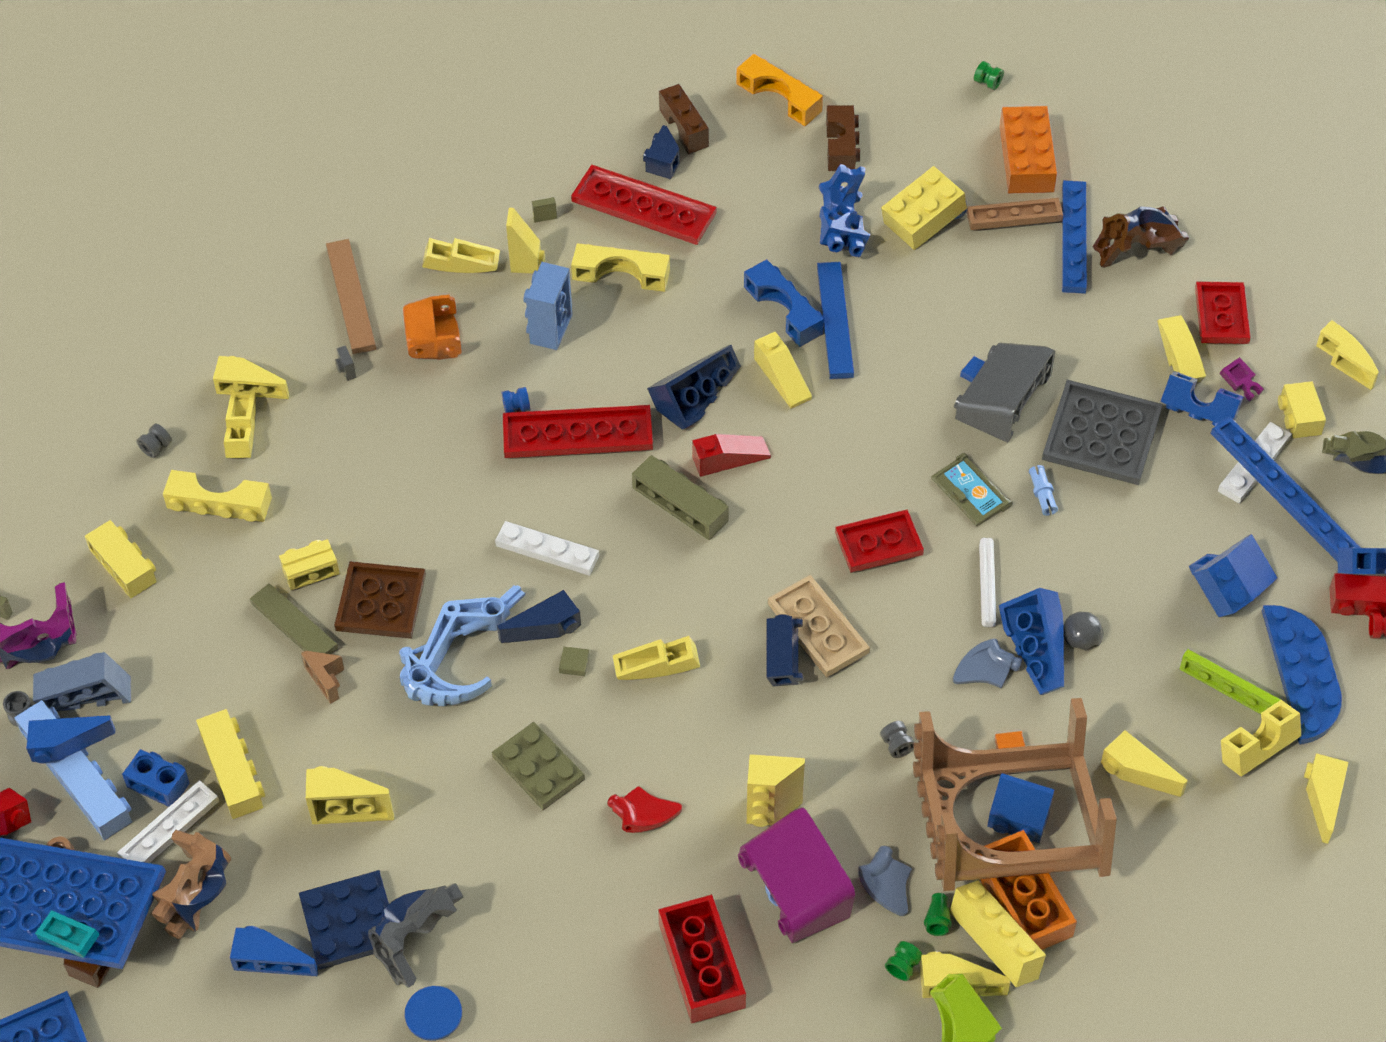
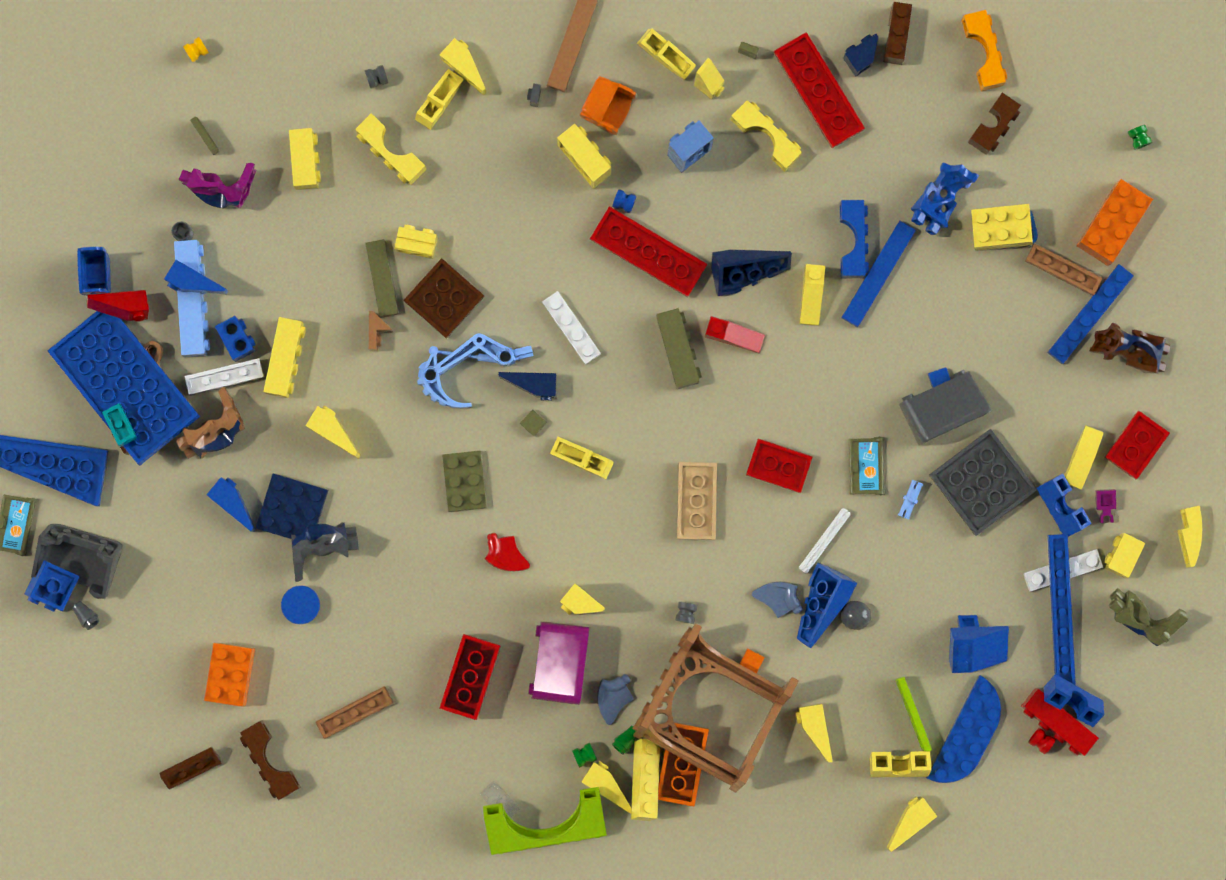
camera: 30 degrees right, 30 degrees up
(82, 682) = (228, 241): sand blue wedge -> none
(441, 380) = (584, 155): none -> light yellow brick
(782, 650) = (659, 507): dark blue brick -> none
(1020, 807) = (720, 712): blue slope -> none

